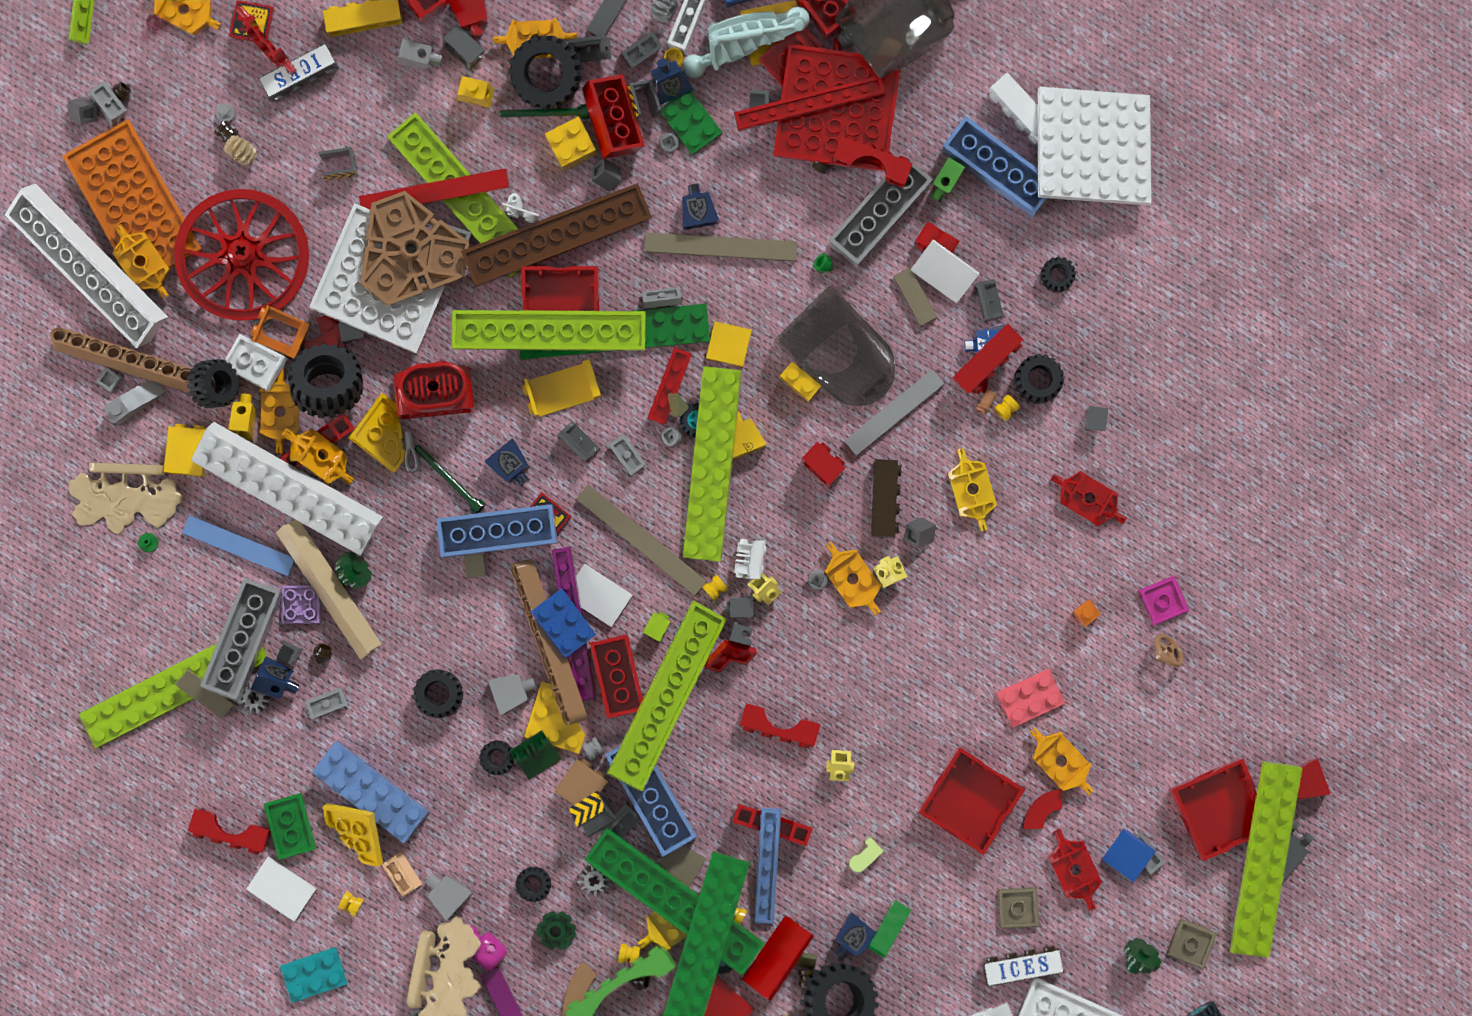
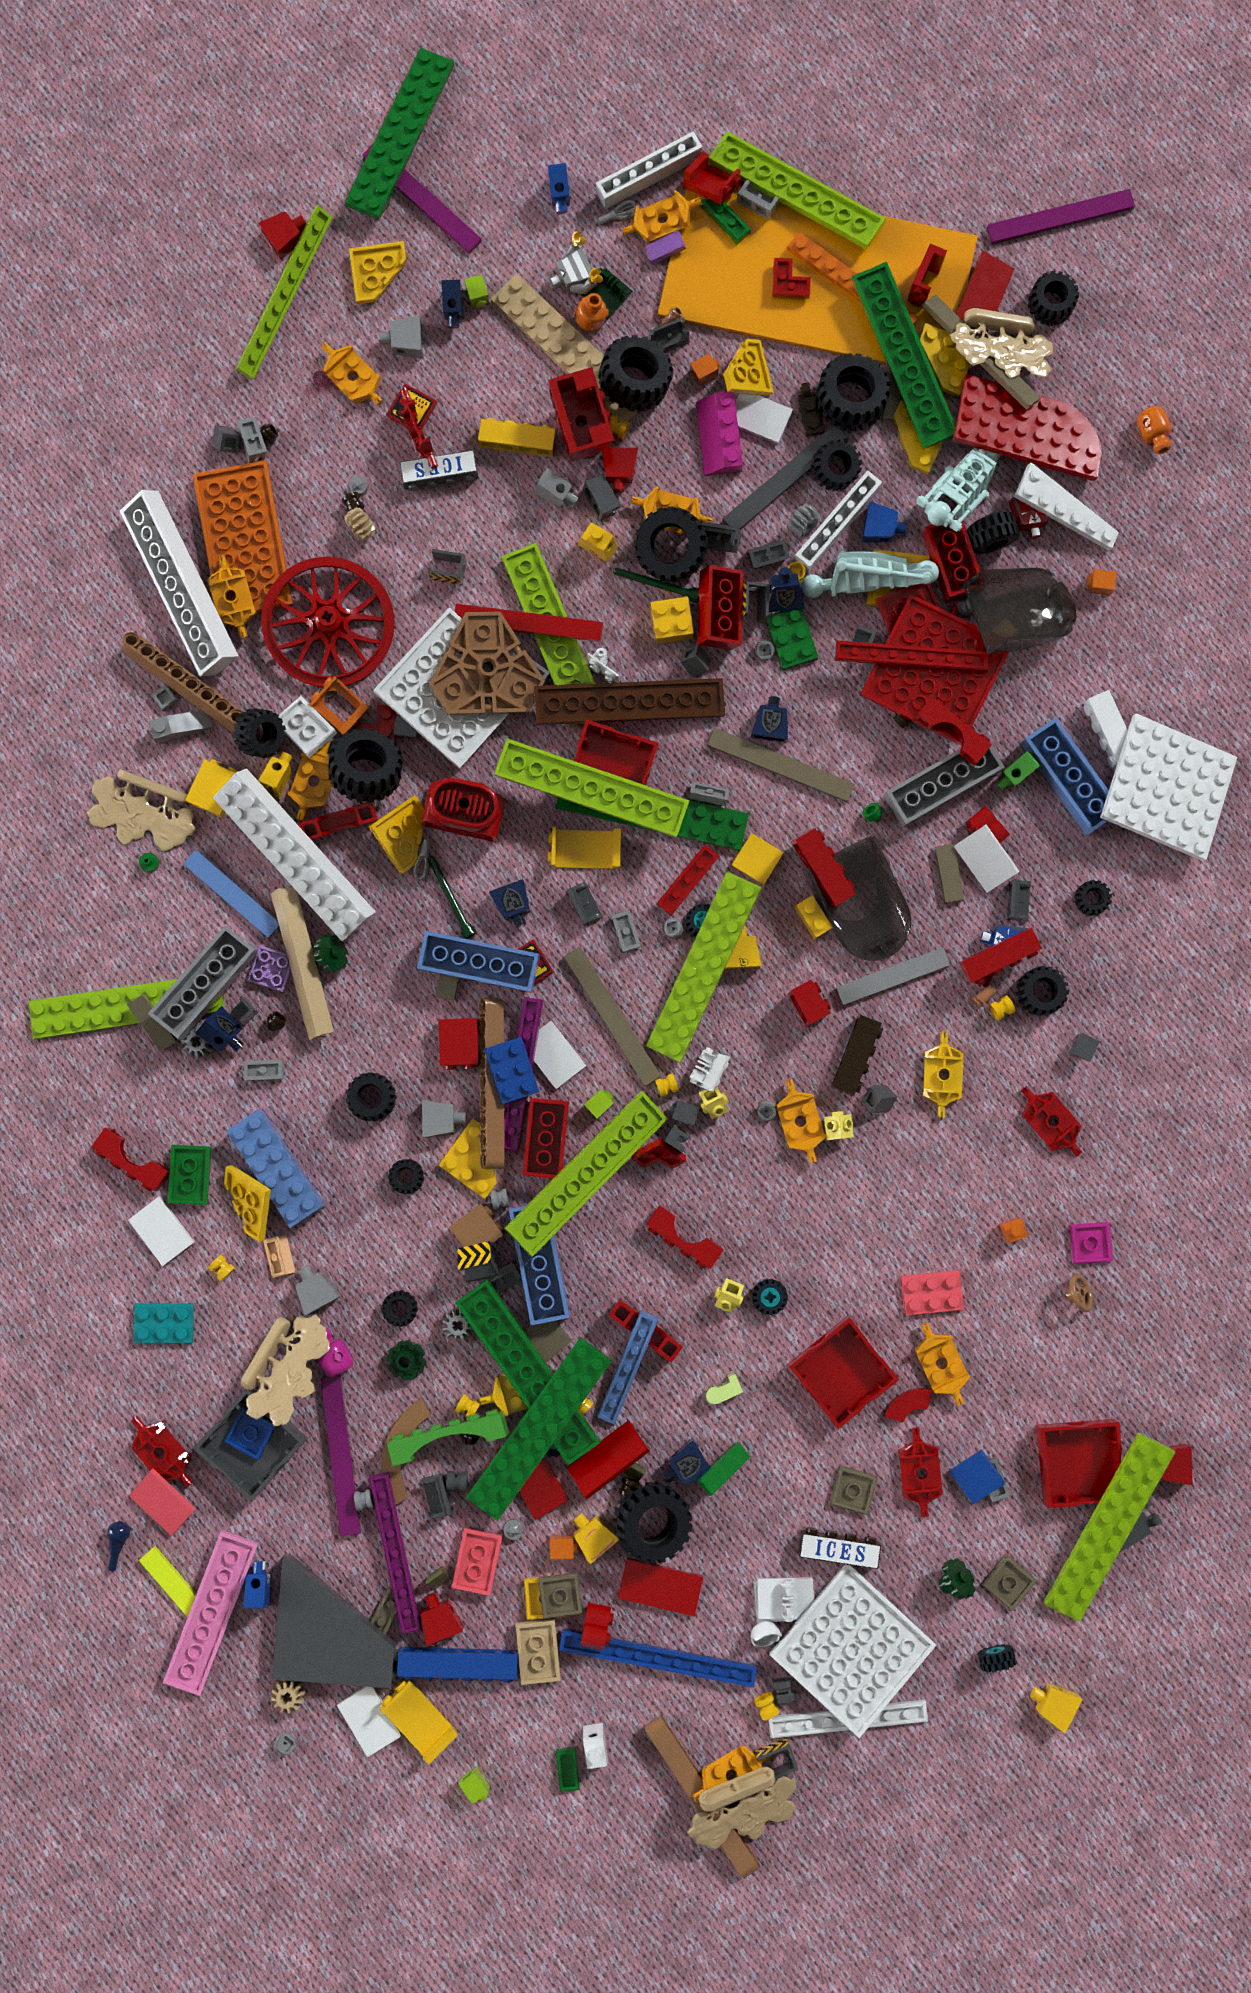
camera: 20 degrees right, 0 degrees up
(305, 451) = (323, 825): light orange plate -> none
(504, 614) = (458, 1043): none -> red panel
(535, 754) = (442, 1186): dark green hinge -> none
(677, 405) = (689, 900): olive slope -> none
(795, 333) = (823, 866): none -> red brick
(879, 753) = (762, 1291): none -> black wheel

